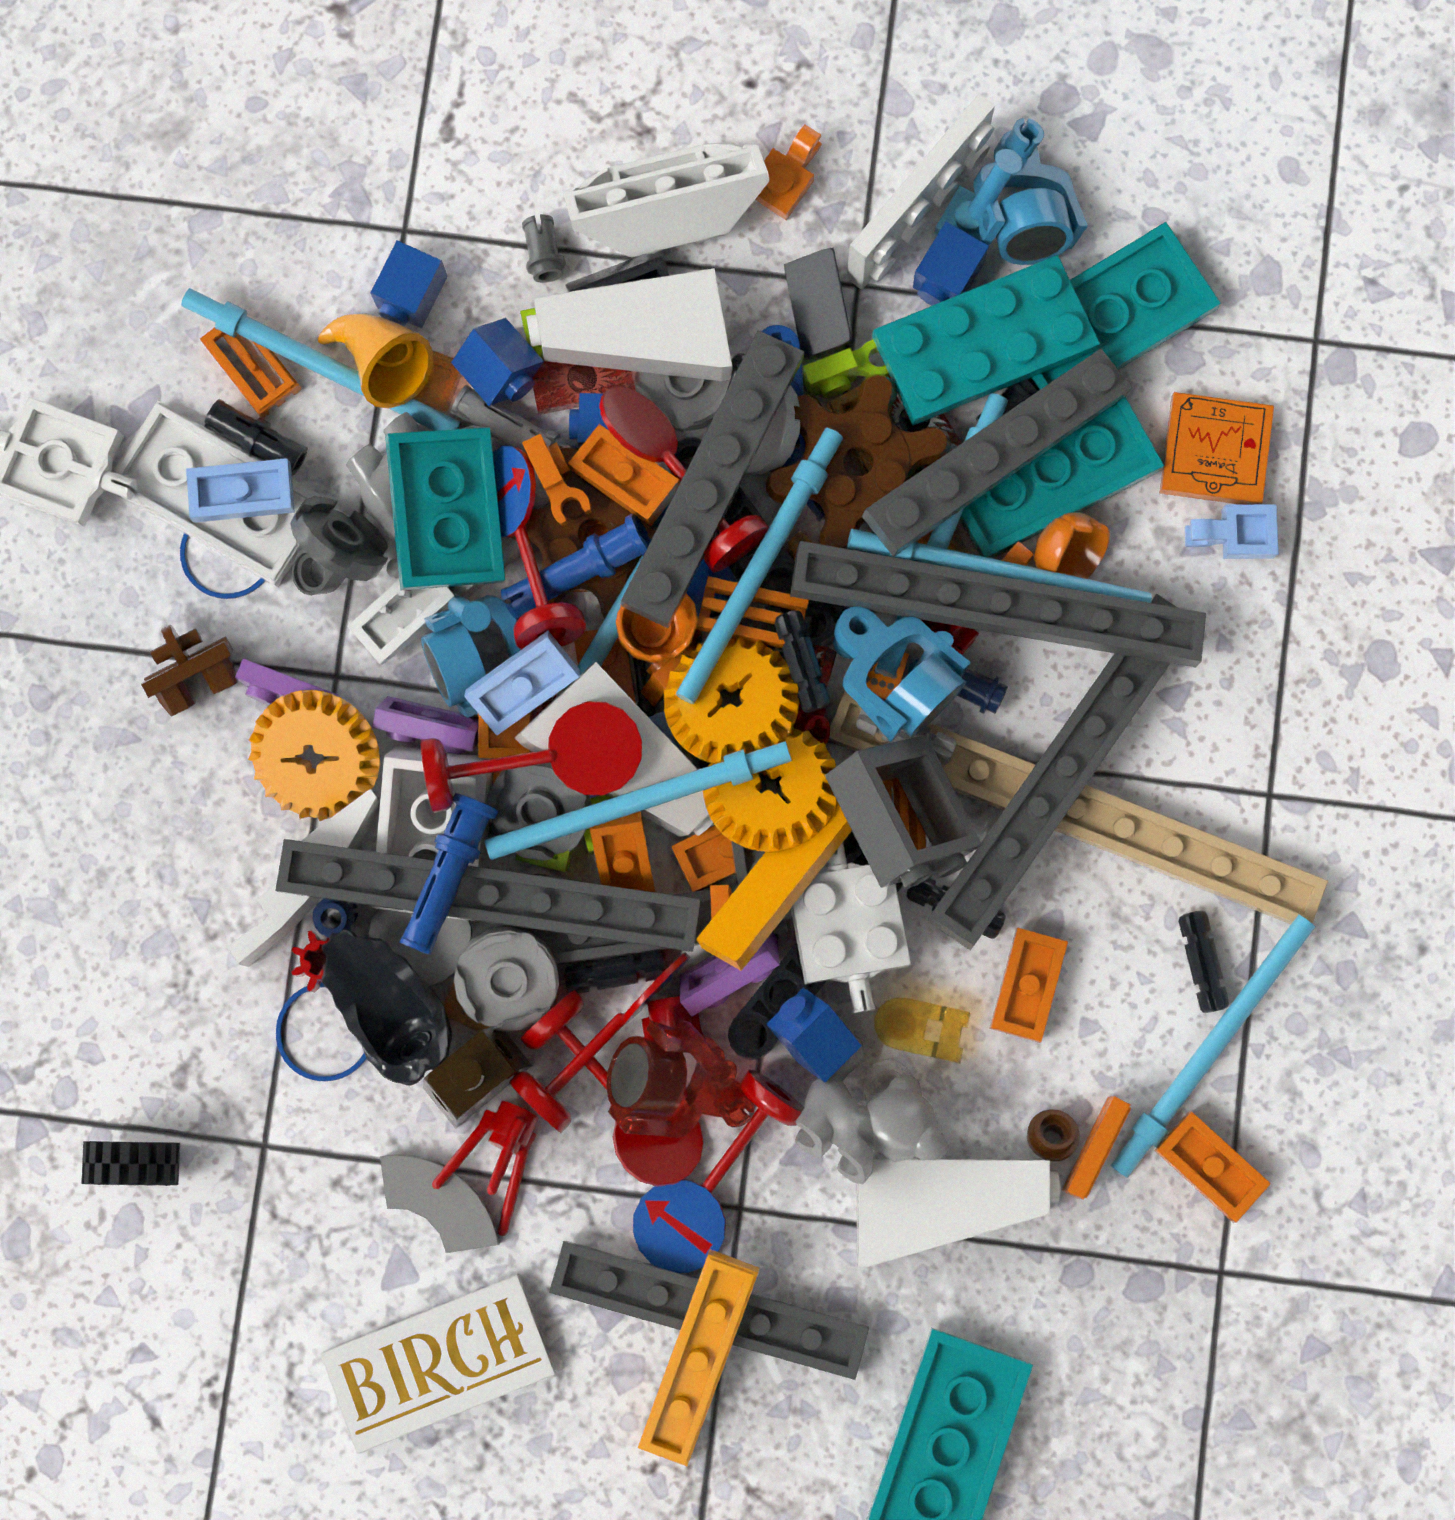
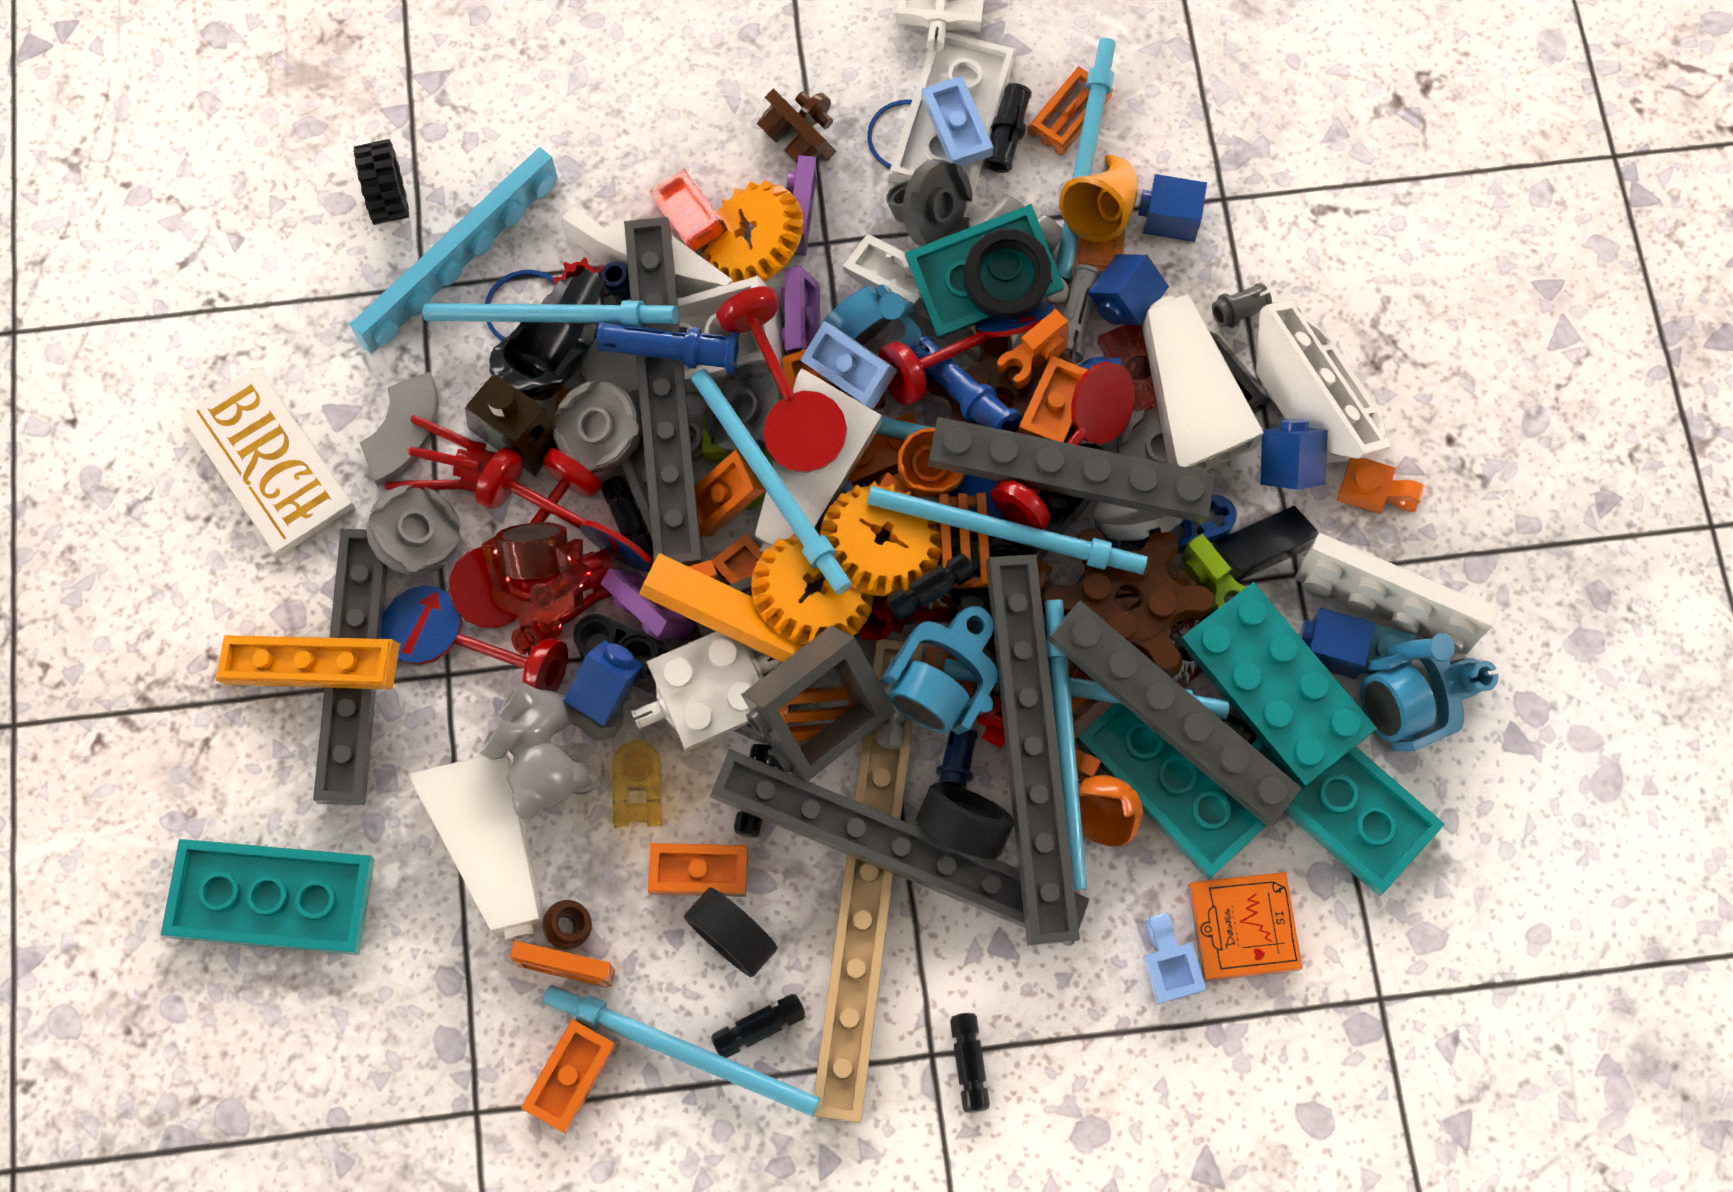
camera: 70 degrees right, 10 degrees down
(250, 1112) = (448, 257): none -> medium azure plate
(261, 819) = (688, 210): none -> clear red tile
(397, 908) = (627, 314): none -> medium azure bar
(487, 450) = (1007, 239): none -> black tyre
(571, 1211) = (413, 530): none -> light grey tile
(741, 246) = (1294, 455): none -> blue brick
(1053, 695) = (965, 821): none -> black tyre
(1111, 964) = (731, 932): none -> black tyre
(1289, 758) = (969, 1062): none -> black axle

